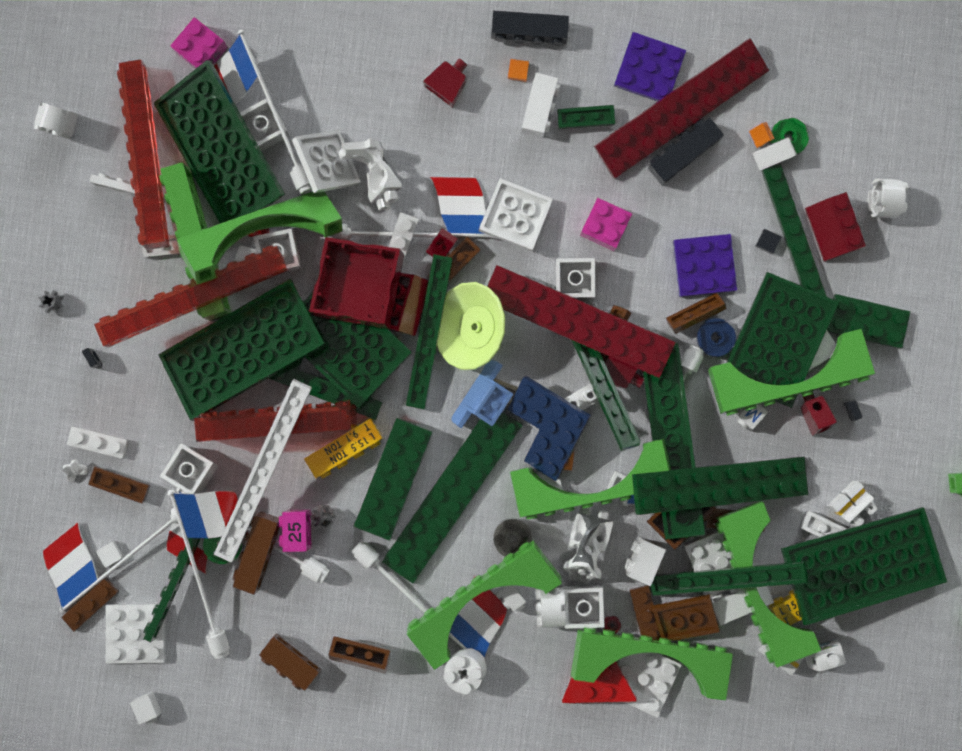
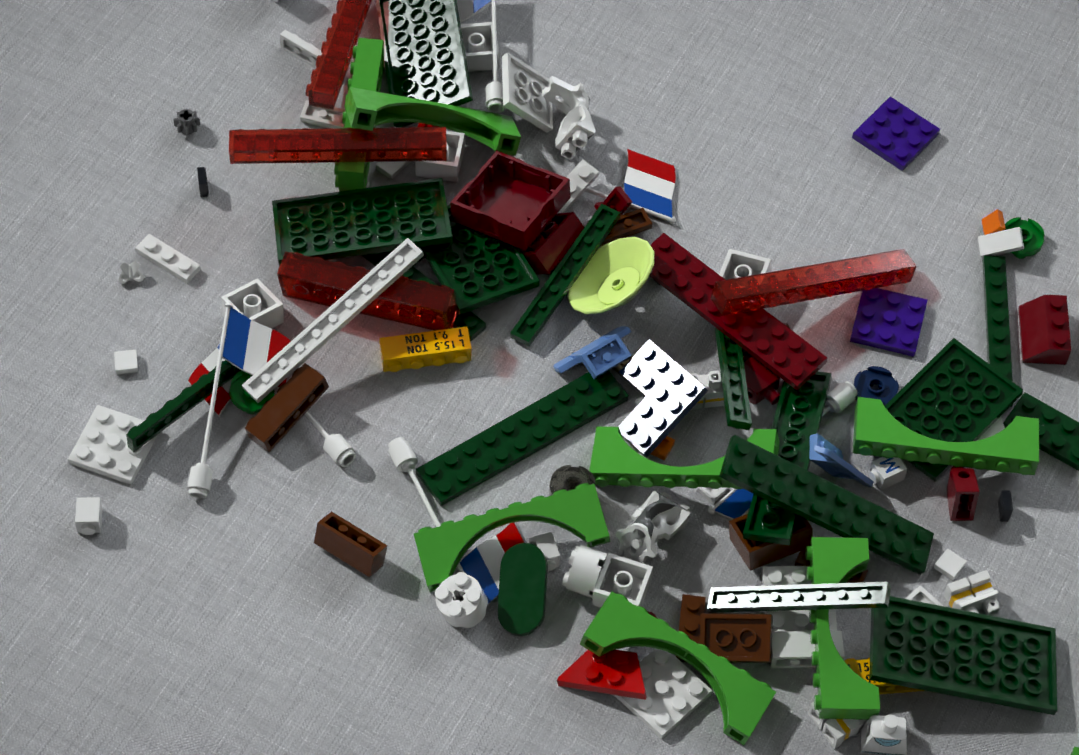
camera: 15 degrees right, 30 degrees down
(73, 565) = (81, 359): flag -> none
(90, 604) = (79, 400): reddish brown plate -> none
(119, 484) = (170, 301): reddish brown plate -> none
(289, 662) = (268, 528): reddish brown brick -> none
(295, 530) = (339, 399): dark pink brick -> none
(322, 516) = (376, 406): flat silver gear -> none
(393, 479) = (465, 394): dark green brick -> none
(447, 81) = (679, 75): dark red torso -> none
(507, 639) = (522, 589): none -> dark green tile
(515, 215) = (702, 206): white plate -> none
(518, 70) = (757, 91): orange tile -> none
(529, 27) = (784, 58): black brick -> none
(540, 105) = (767, 124): white brick -> none
(586, 117) = (812, 150): dark green plate -> none
(605, 224) = (794, 244): dark pink brick -> none
(638, 268) = (812, 282): none -> clear red brick
(644, 561) = (711, 562): white brick -> none
(681, 108) = (915, 174): dark red plate -> none
(685, 151) = (906, 212): black brick -> none
(696, 313) = (862, 358): reddish brown plate -> none
(706, 437) = (831, 460): none -> medium blue plate
(768, 241) = (966, 321): black tile -> none
(825, 478) = (950, 564): none -> white tile

